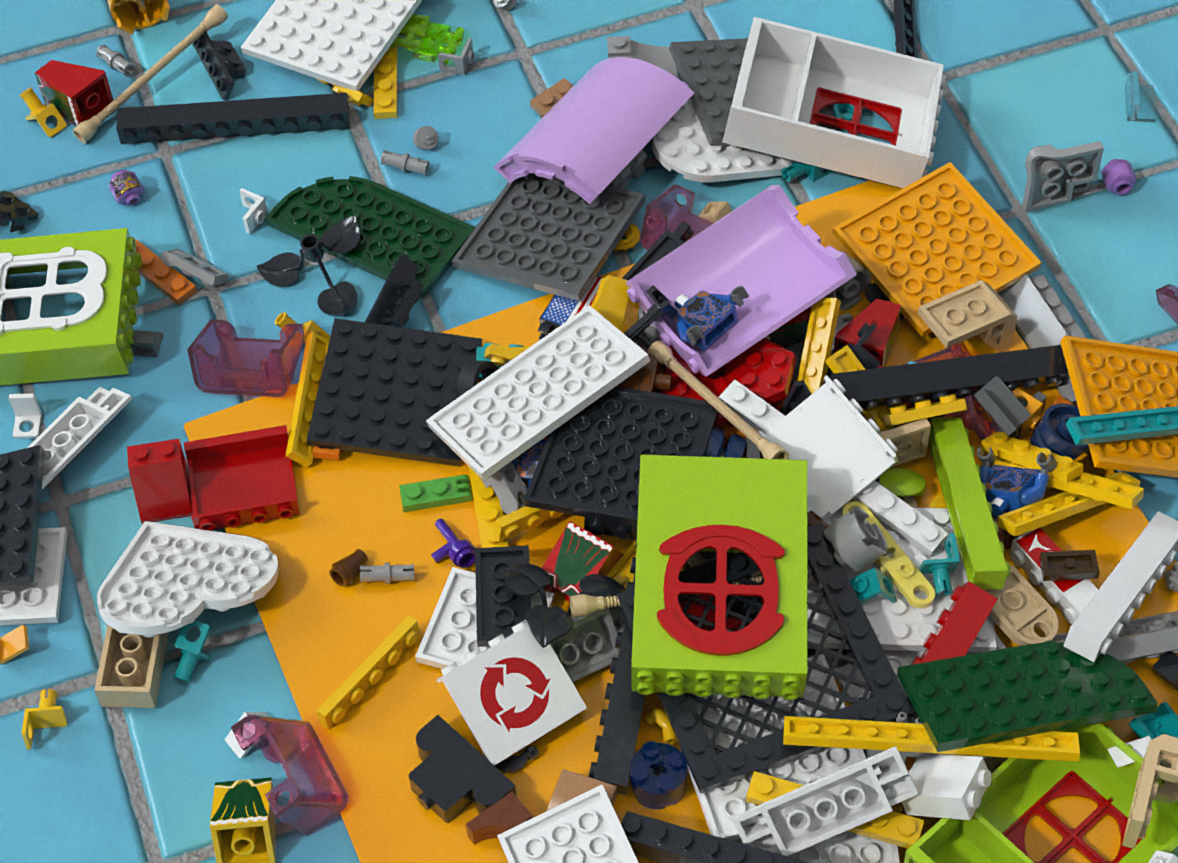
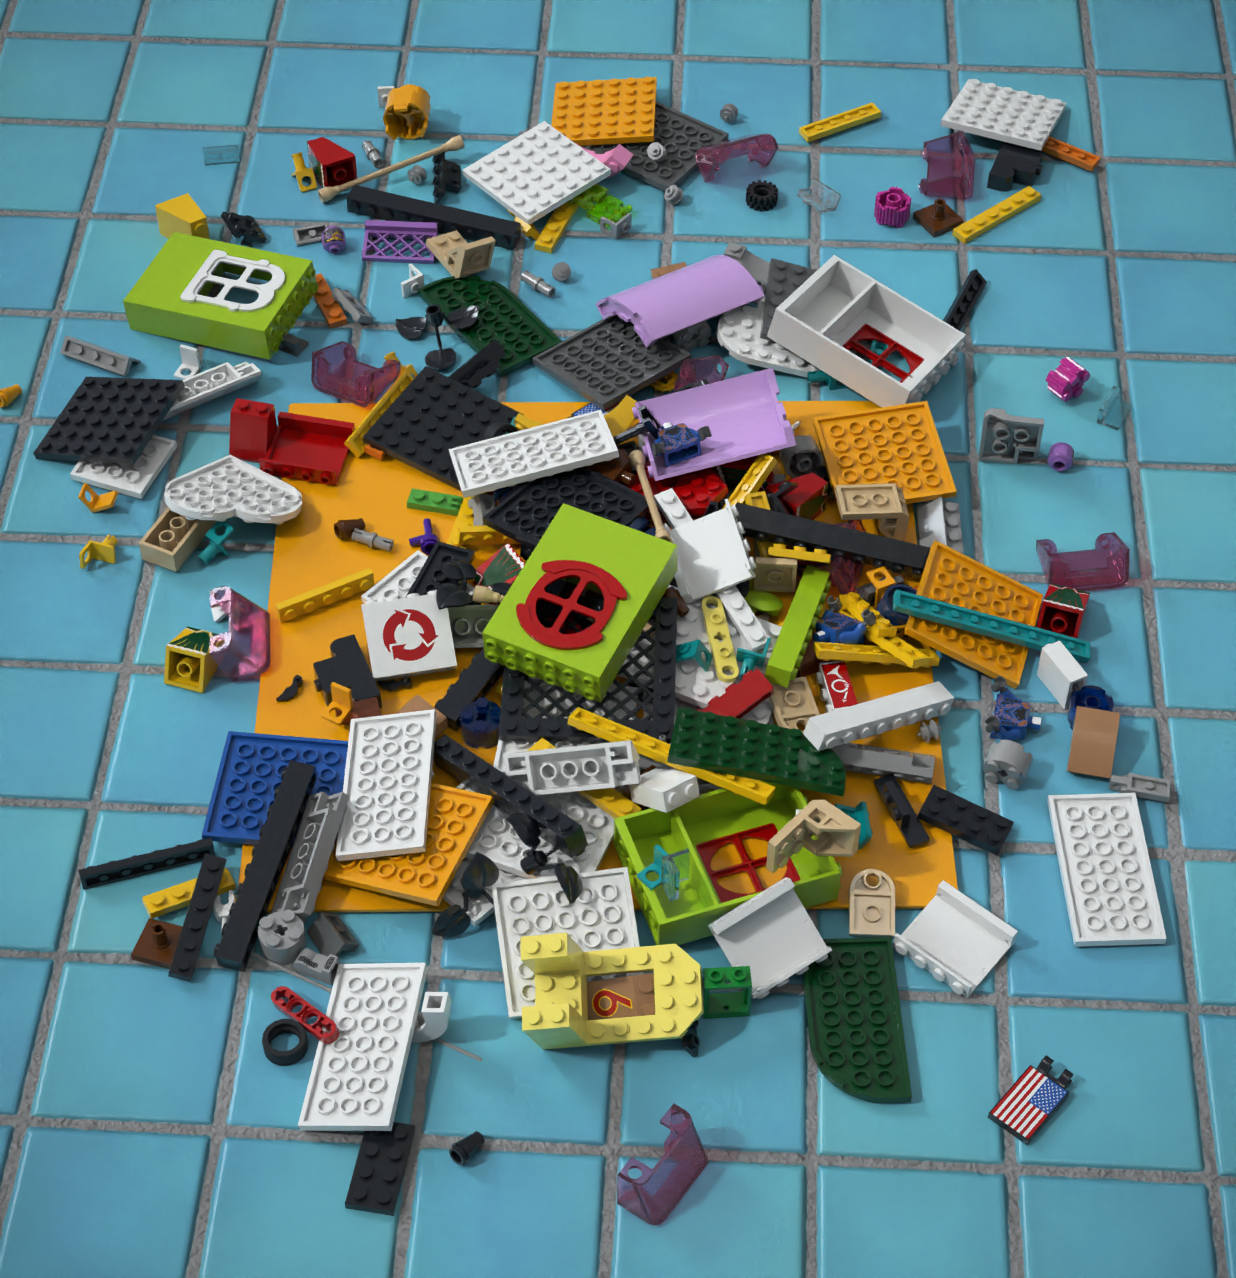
camera: 20 degrees right, 5 degrees down
(90, 189) = (309, 233): none -> light grey slope
(184, 70) = (417, 174): none -> light grey wheel
(204, 149) = (400, 230): none -> medium lavender fence
(293, 160) = (459, 256): none -> tan bracket
(392, 822) = (291, 691): none -> black piece
(474, 815) = (340, 700): none -> light orange bracket
(856, 539) = (696, 617): light grey brick -> none
(1001, 405) = (860, 572): dark grey panel -> none
(1069, 565) = (846, 690): dark brown plate -> none
(1075, 80) = (1067, 379): none -> dark pink brick

